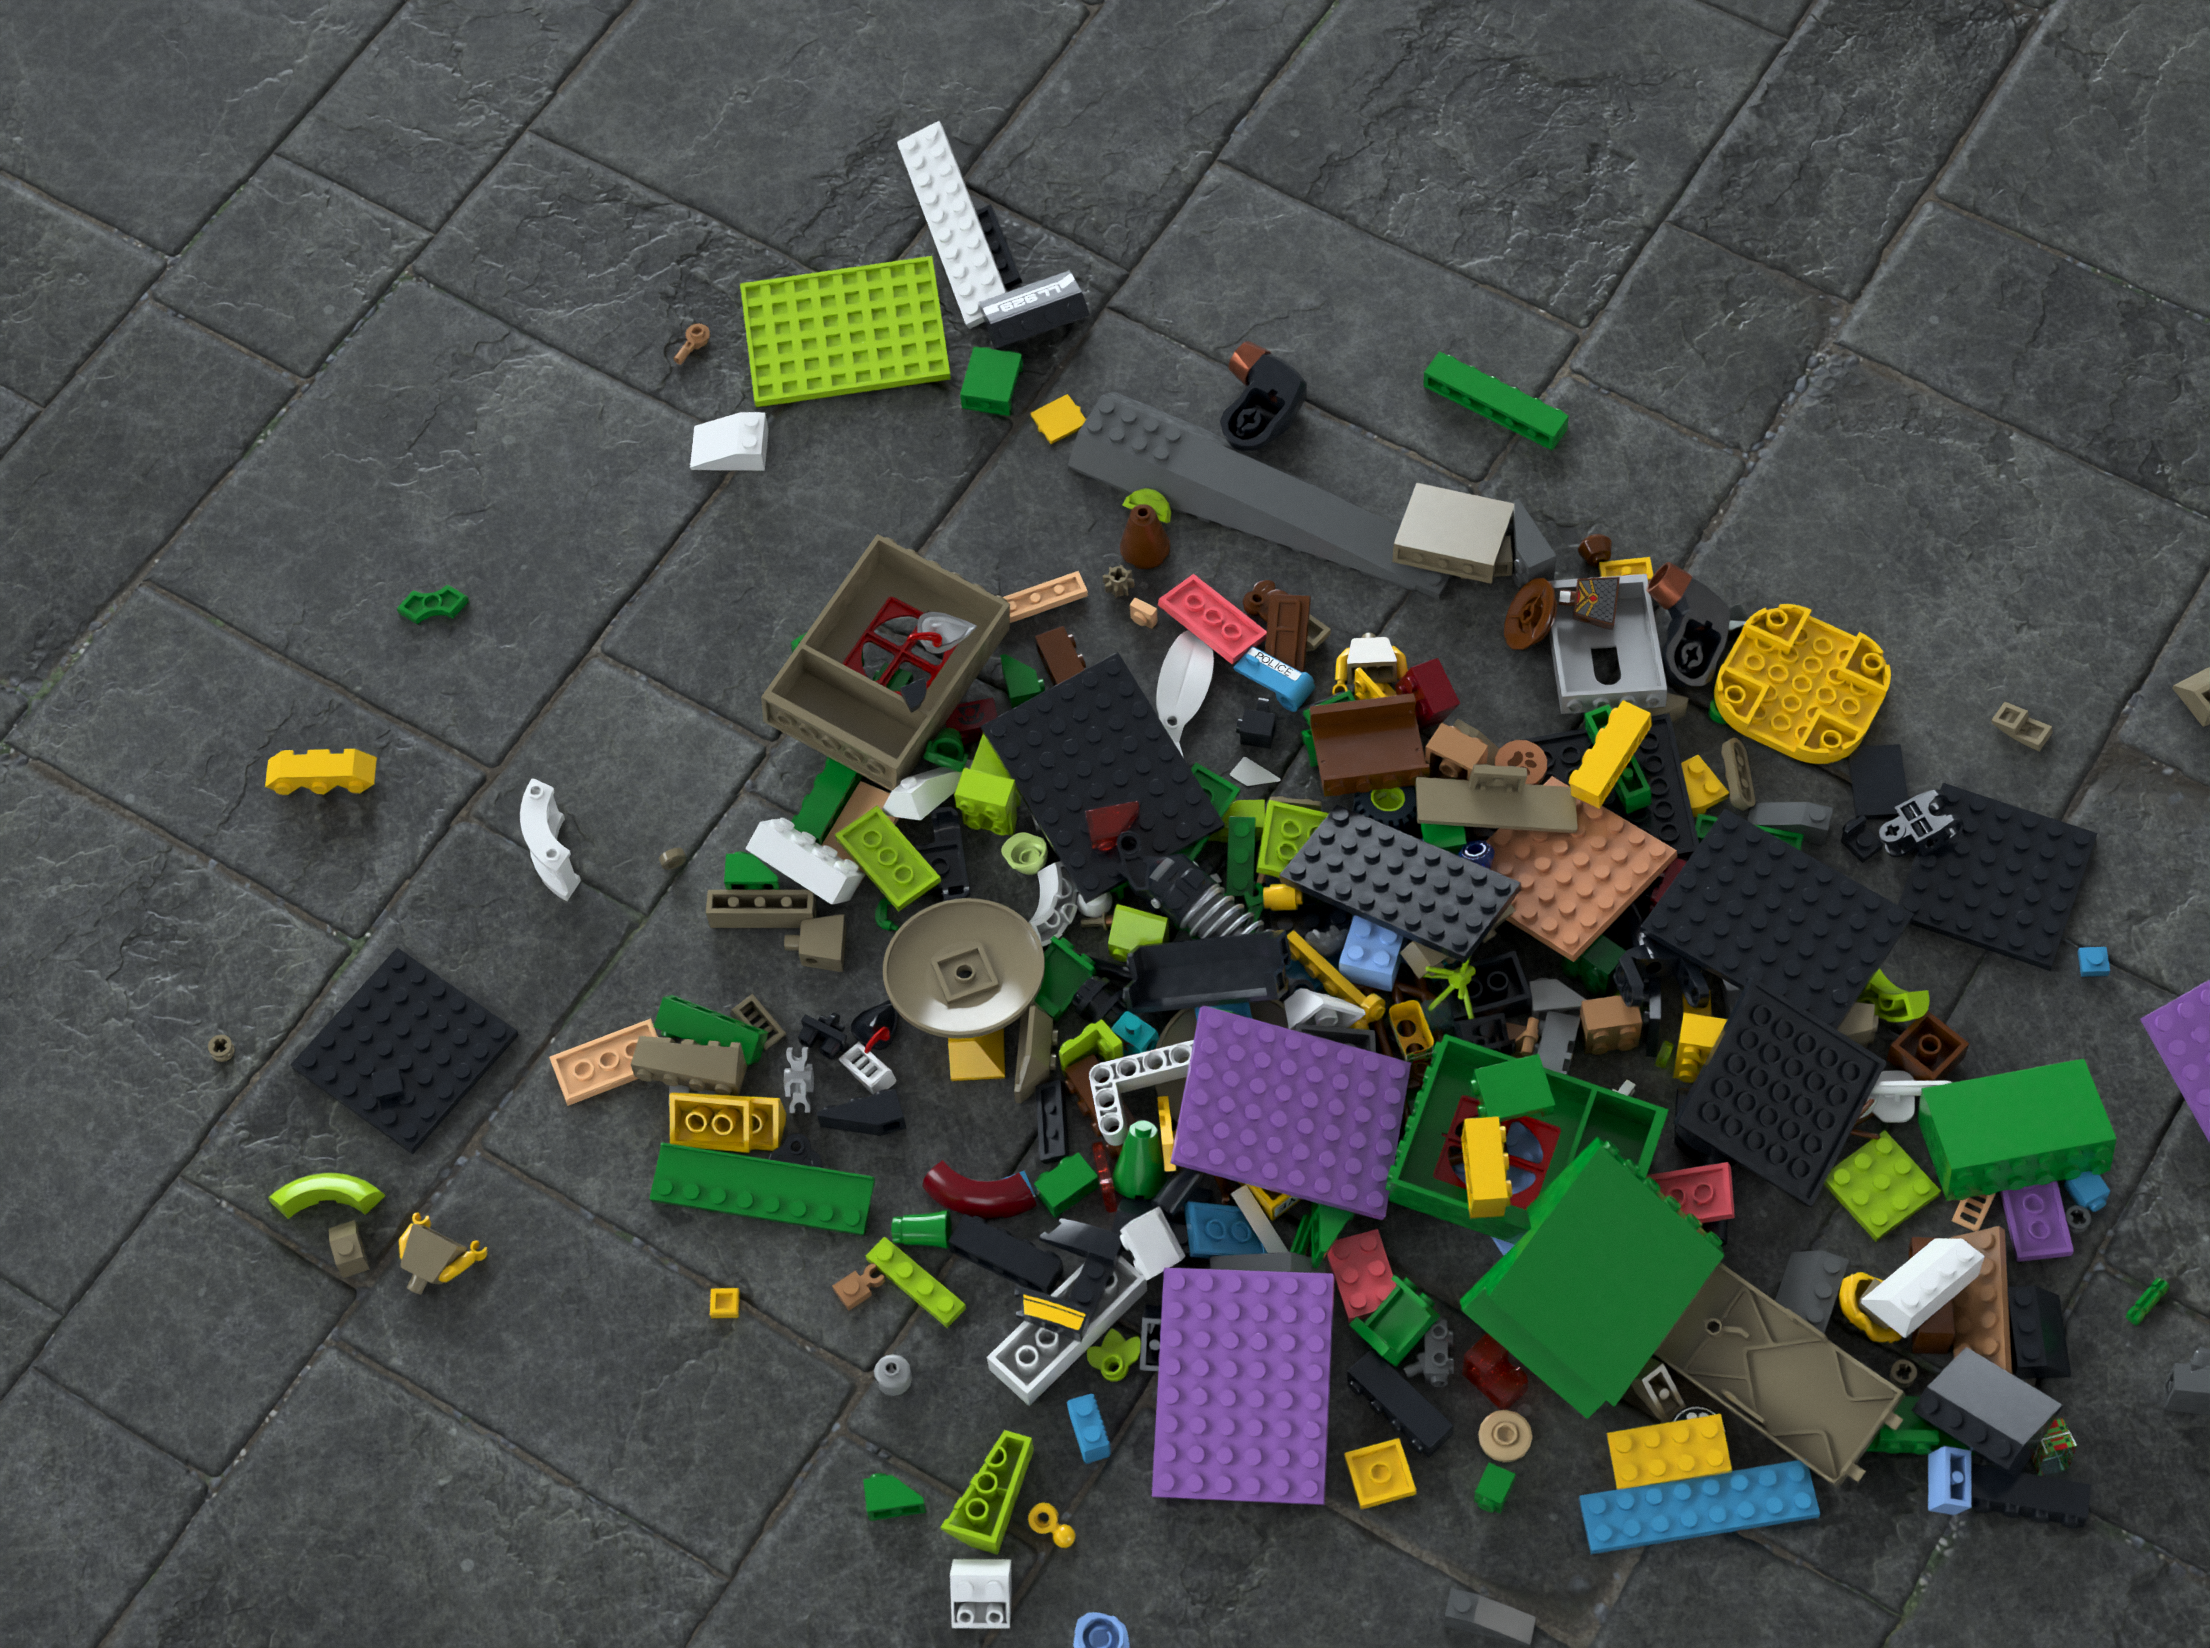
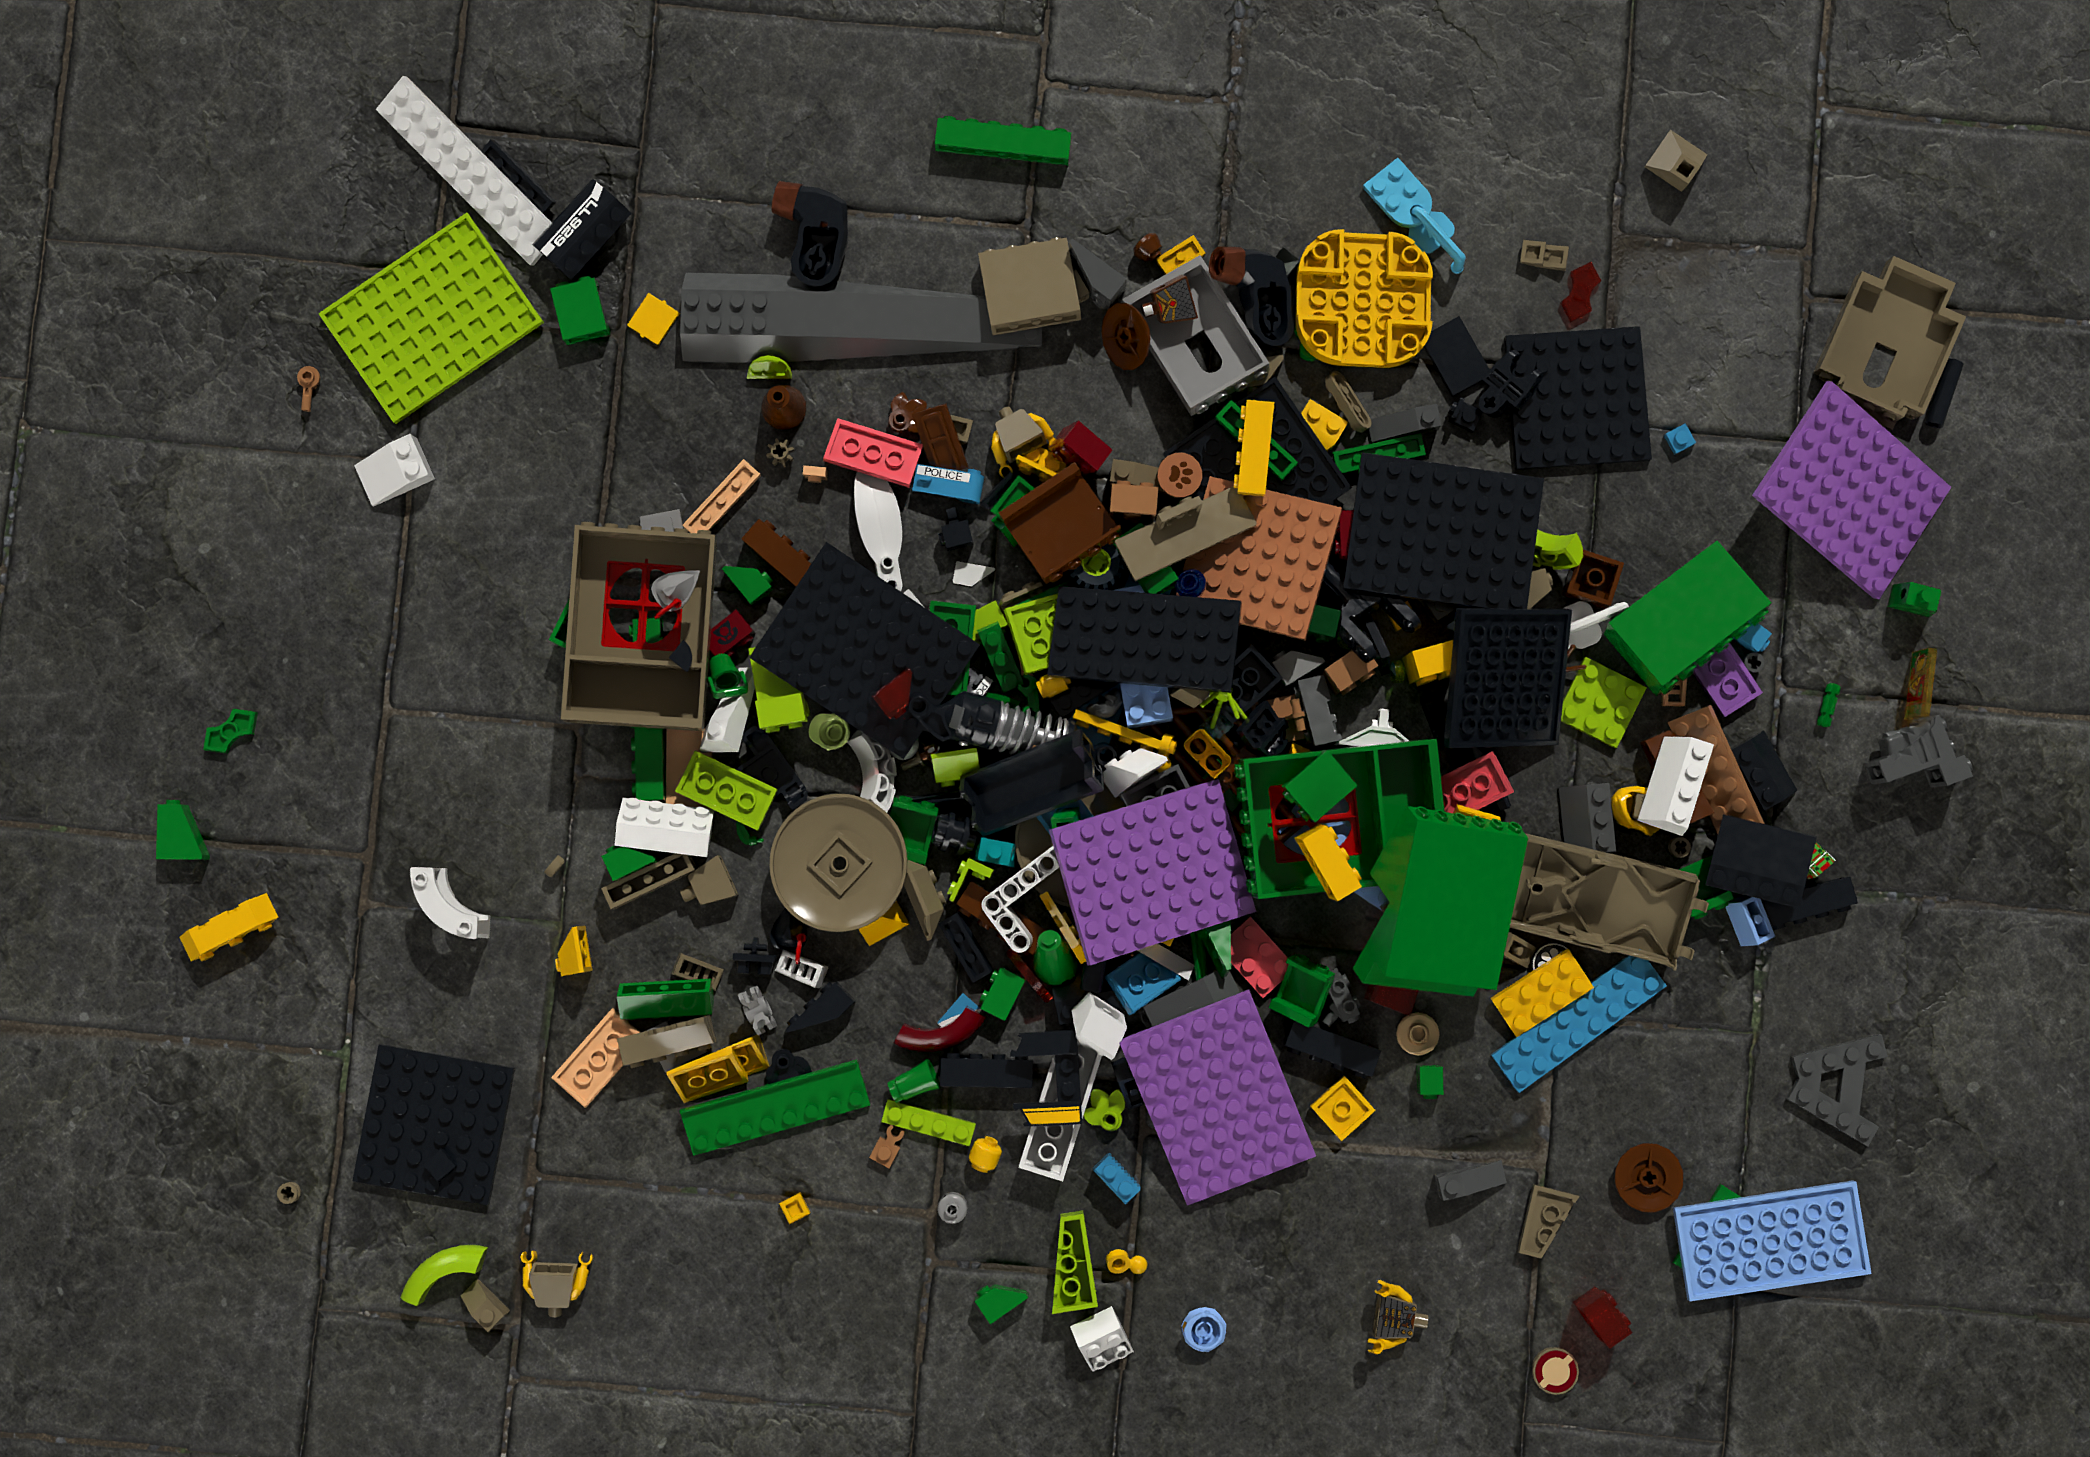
camera: 30 degrees left, 25 degrees up
(325, 671) = (178, 833): none -> green slope
(645, 944) = (574, 953): none -> yellow slope
(958, 1338) = (985, 1154): none -> yellow head
(1889, 606) = (1400, 192): none -> medium azure plate
(2038, 784) = (1578, 301): none -> clear red tile

